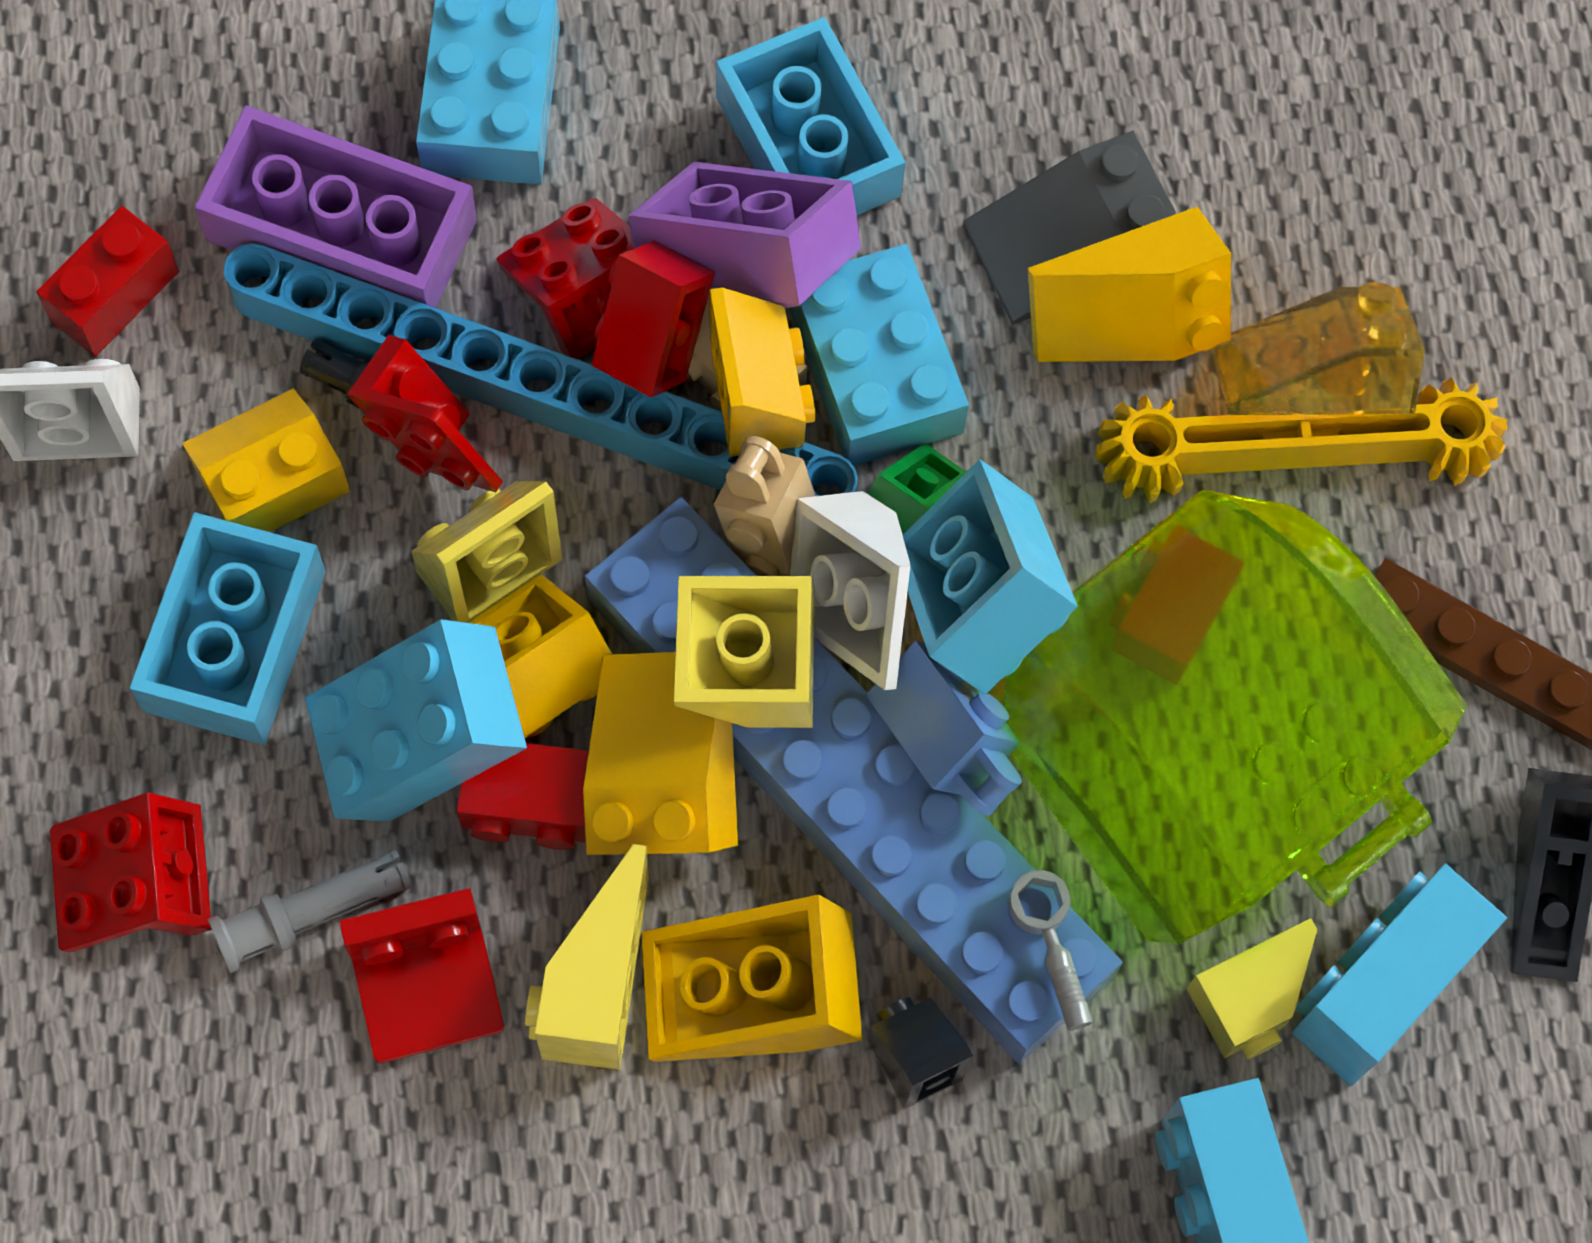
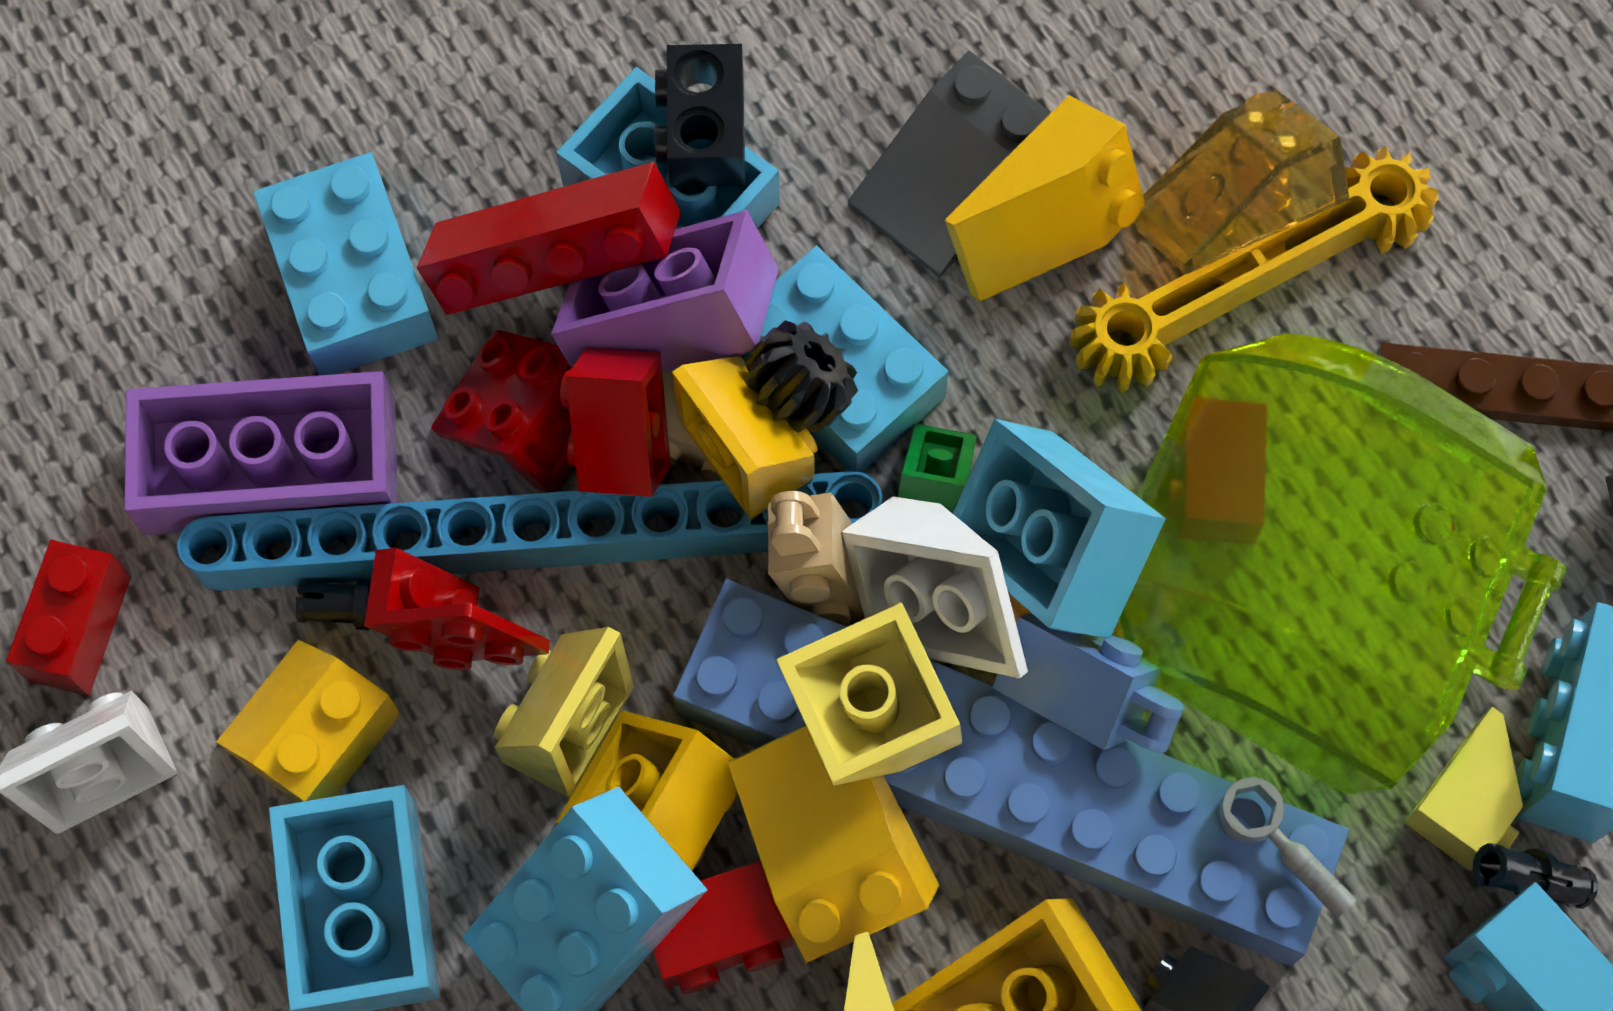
camera: 20 degrees left, 0 degrees up
(672, 134) = (550, 239): none -> red brick
(826, 347) = (801, 376): none -> black gear
(868, 86) = (702, 115): none -> black brick
(1297, 1104) = (1511, 871): none -> black pin

